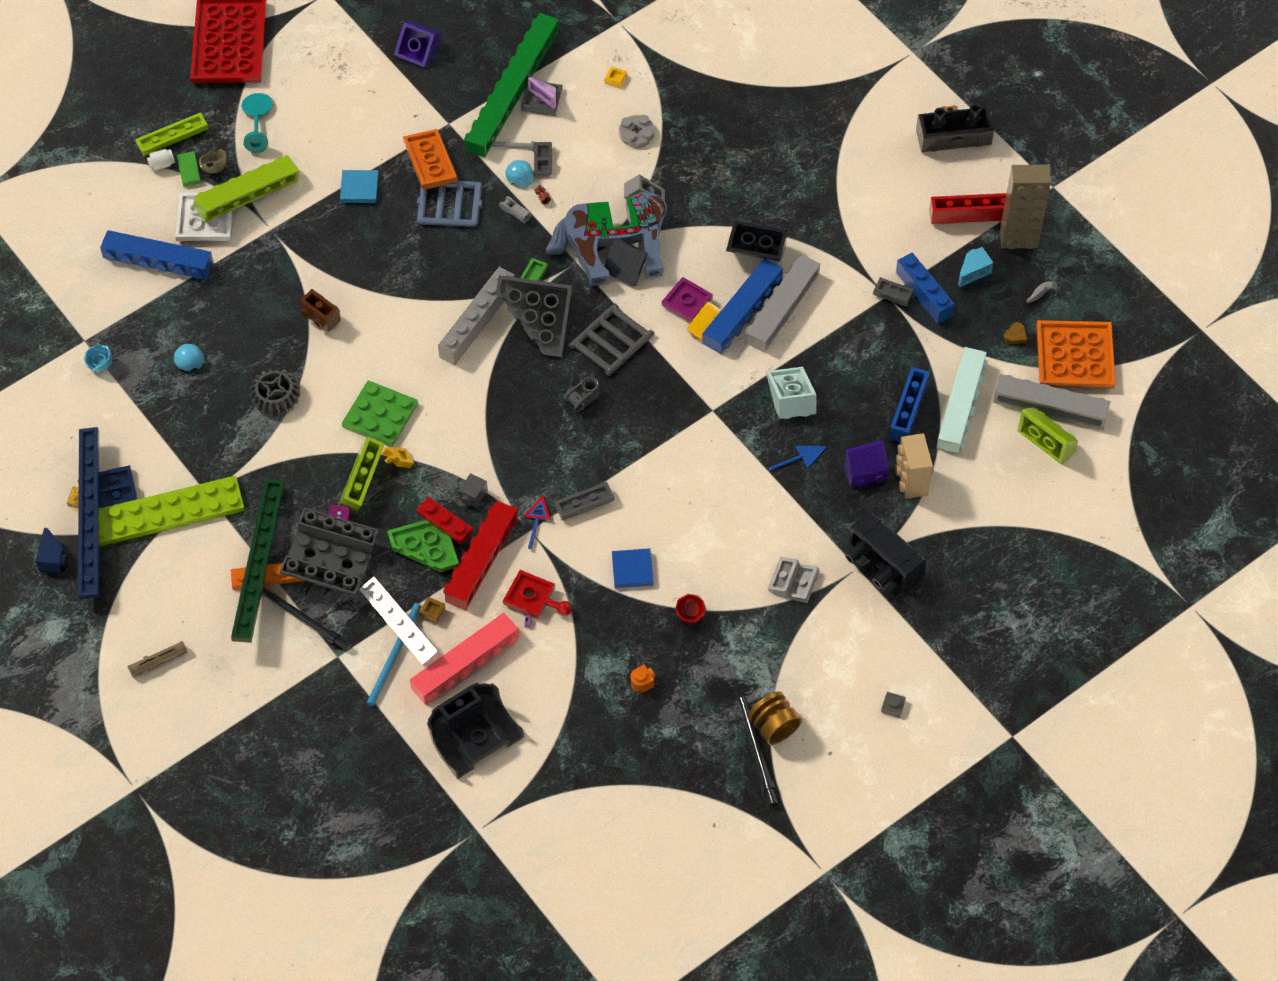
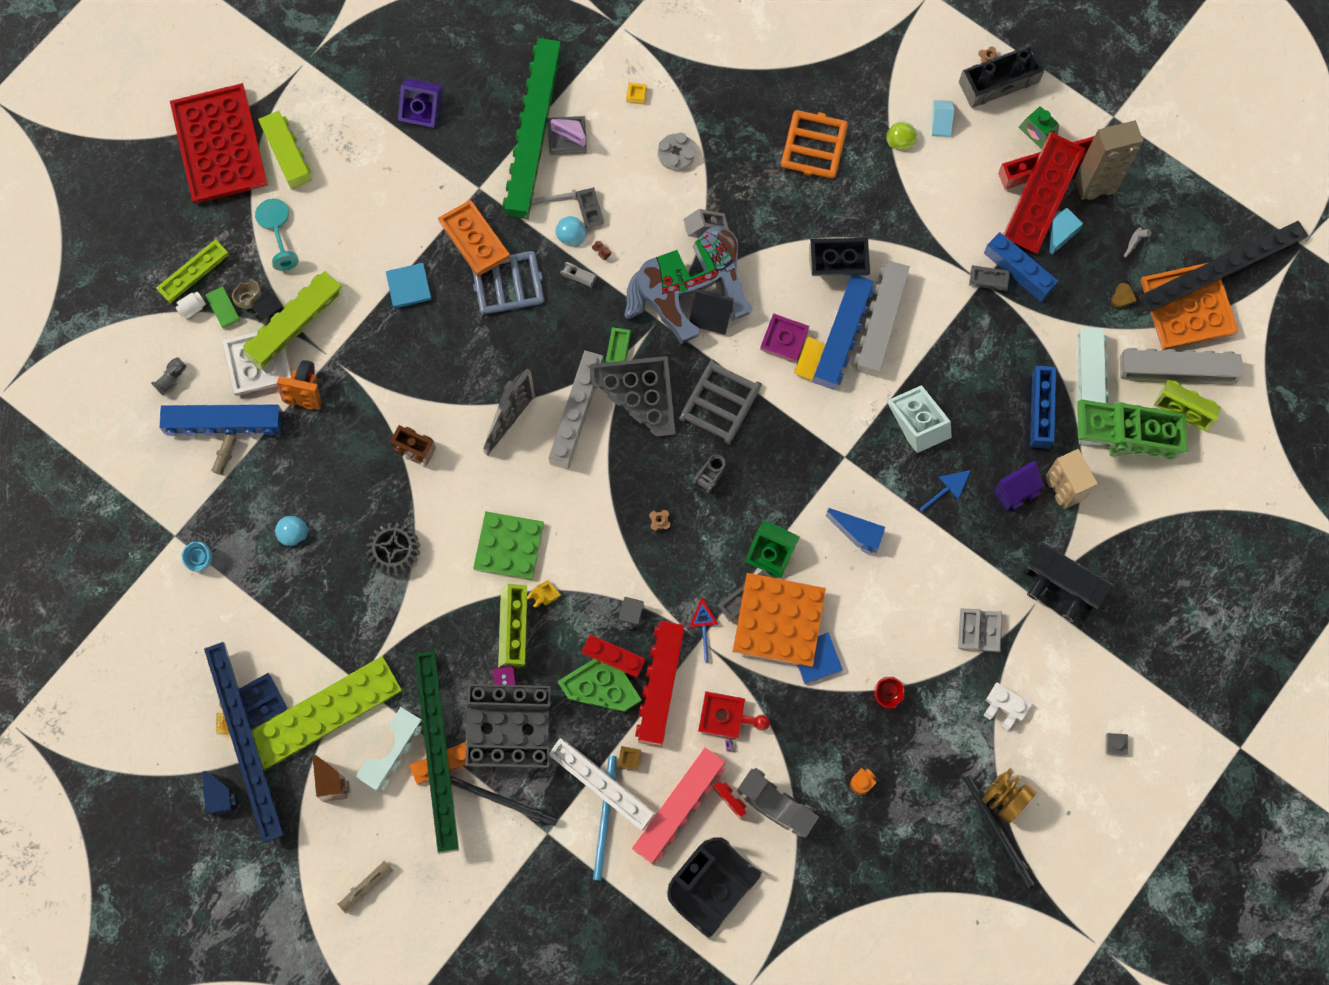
camera: 15 degrees left, 15 degrees up
(123, 211) = (172, 370): none -> dark grey connector
(149, 284) = (224, 454): none -> dark tan pin
(153, 562) = (328, 782): none -> reddish brown slope
(199, 567) = (376, 772): none -> light aqua arch
(225, 173) = (266, 309): none -> black brick
(235, 243) = (301, 387): none -> orange plate
(285, 56) = (285, 150): none -> lime brick
(419, 297) = (513, 402): none -> dark grey slope
(511, 659) = (735, 805): none -> red plate
(524, 427) = (664, 524): none -> medium nougat plate
(548, 671) = (776, 806): none -> dark grey brick
(606, 526) = (779, 620): none -> orange plate
(619, 467) = (772, 548): none -> green slope
(708, 473) = (859, 531): none -> blue slope
(742, 148) = (834, 157): none -> orange bar
(800, 645) = (1009, 703): none -> white plate
(848, 160) = (901, 135): none -> lime hair
(890, 154) = (942, 118): none -> medium azure slope
(962, 228) = (1043, 192): none -> red plate
(978, 177) = (1039, 125): none -> green torso
(985, 437) = (1132, 428): none -> bright green wedge
(1117, 327) = (1223, 266): none -> black plate

